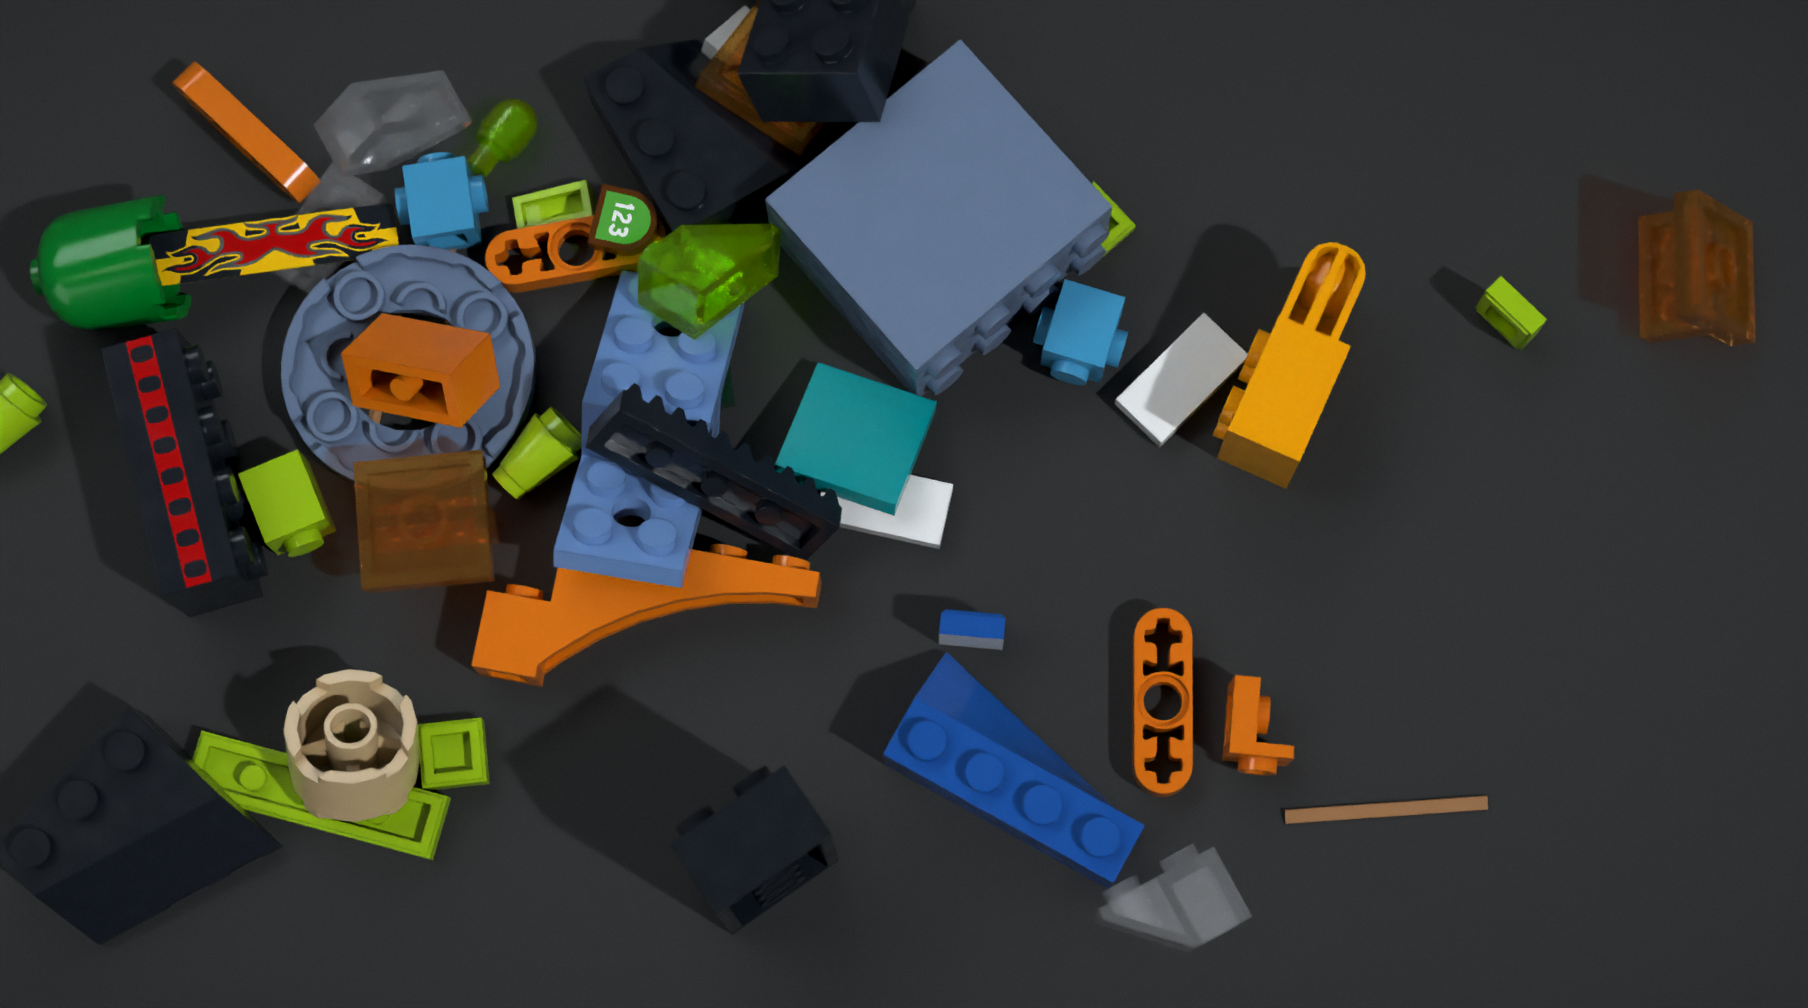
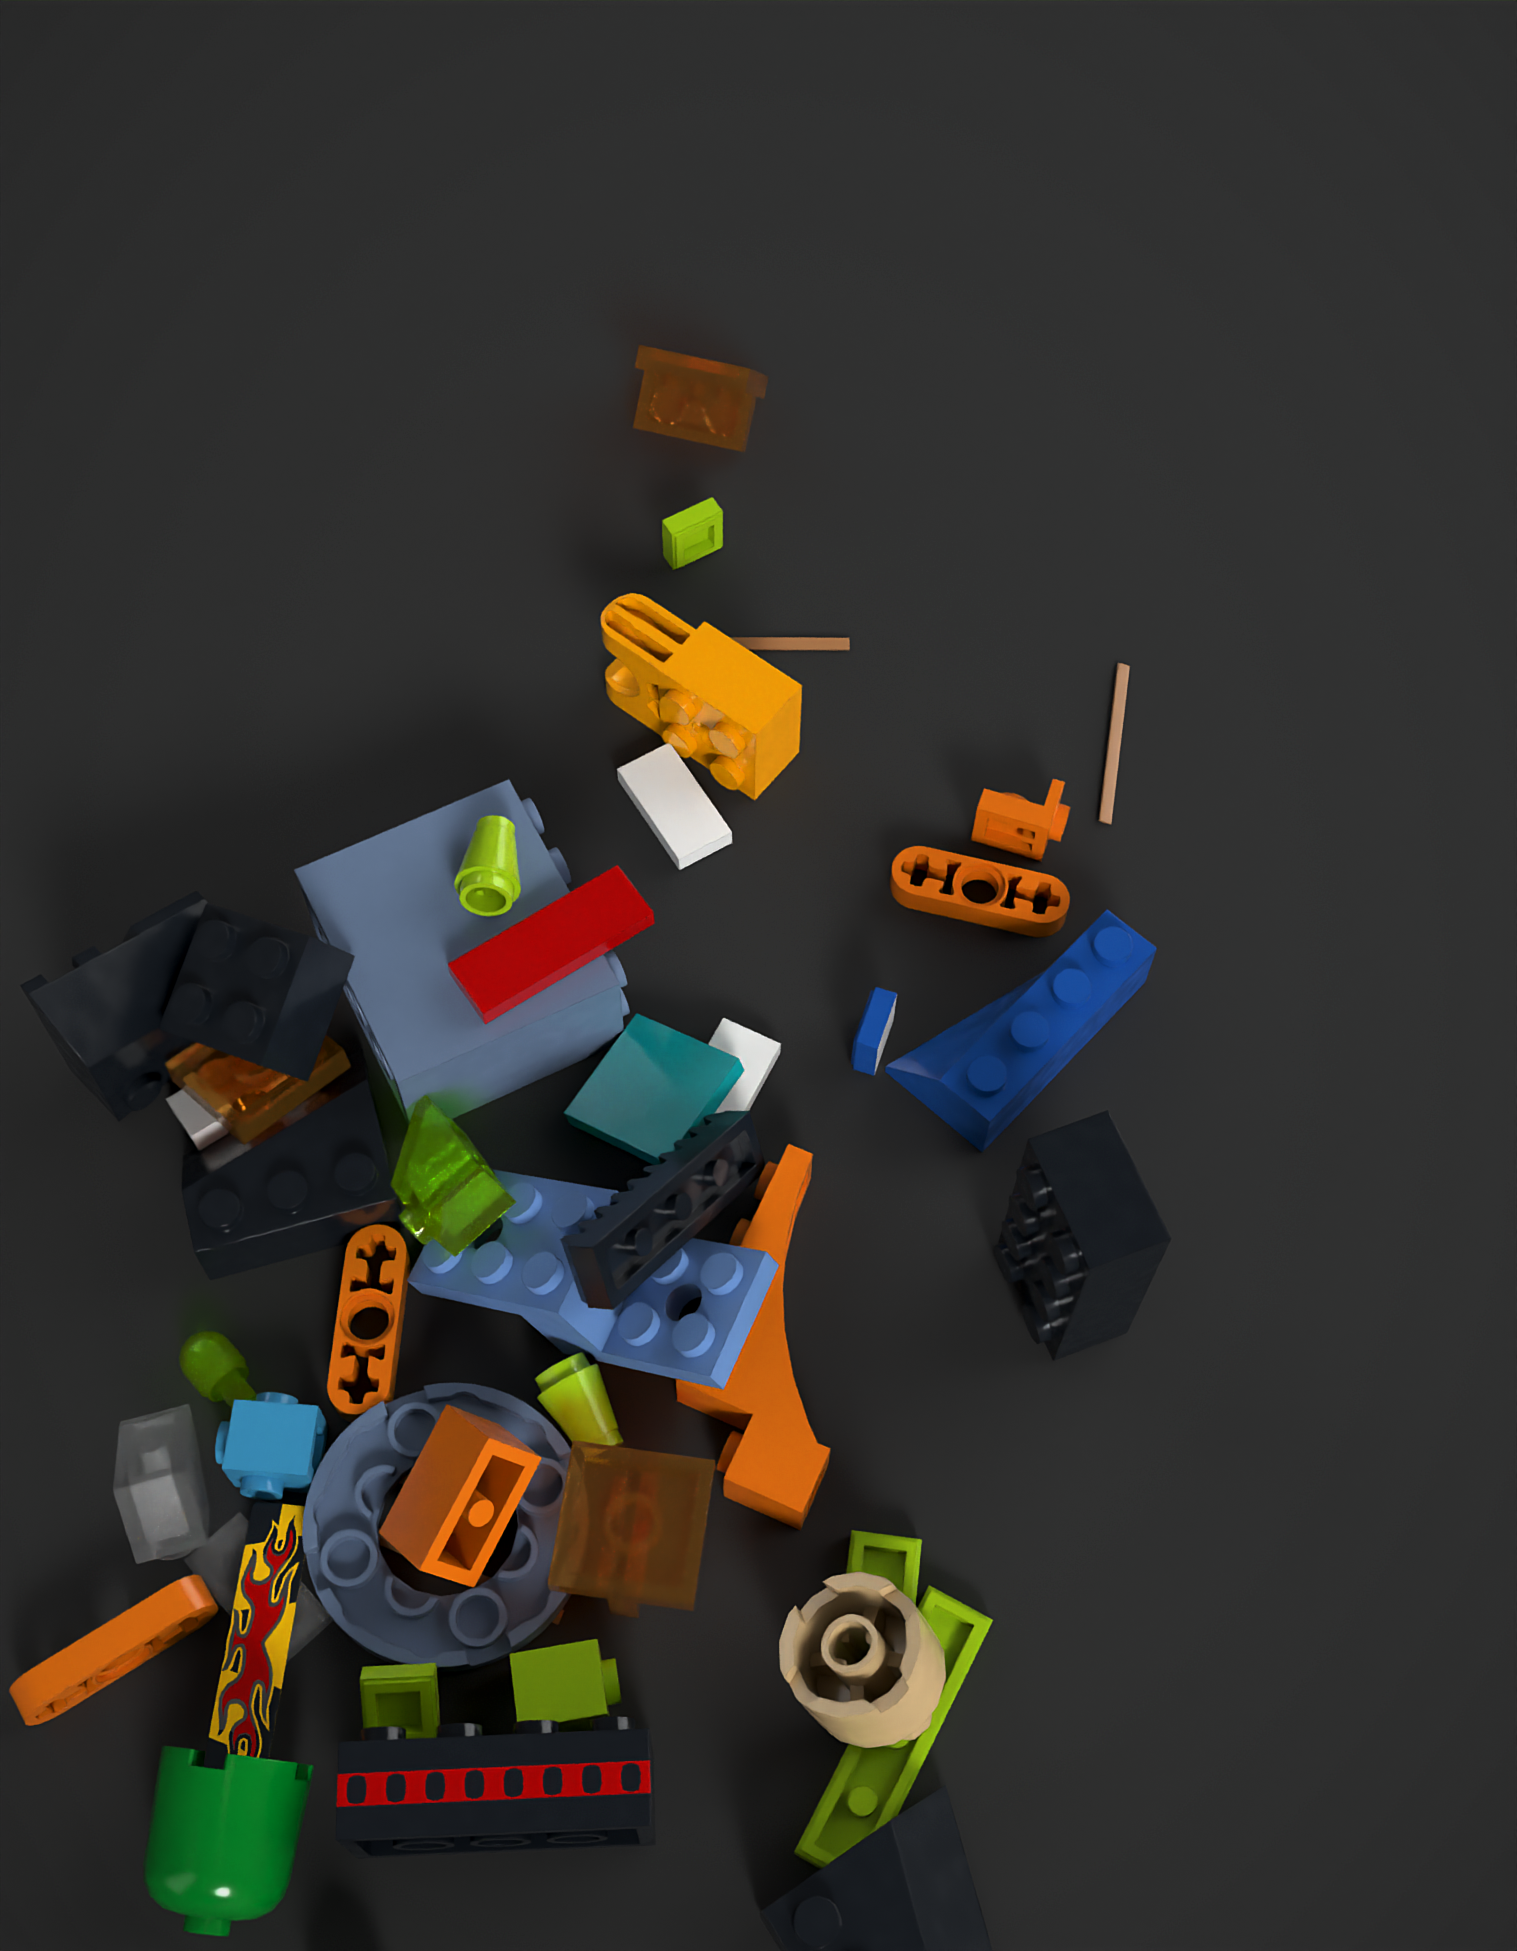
camera: 80 degrees left, 15 degrees down
(249, 375) = (401, 1698): none -> lime tile
(555, 204) = (313, 1337): lime piece -> none
(623, 222) = (359, 1258): tile -> none
(935, 295) = (551, 944): none -> red tile
(997, 215) = (489, 868): none -> lime cone
(1081, 333) = (600, 847): dark azure brick -> none
(1181, 906) = (1177, 910): clear slope -> none
(1405, 416) = (793, 643): none -> medium nougat piece

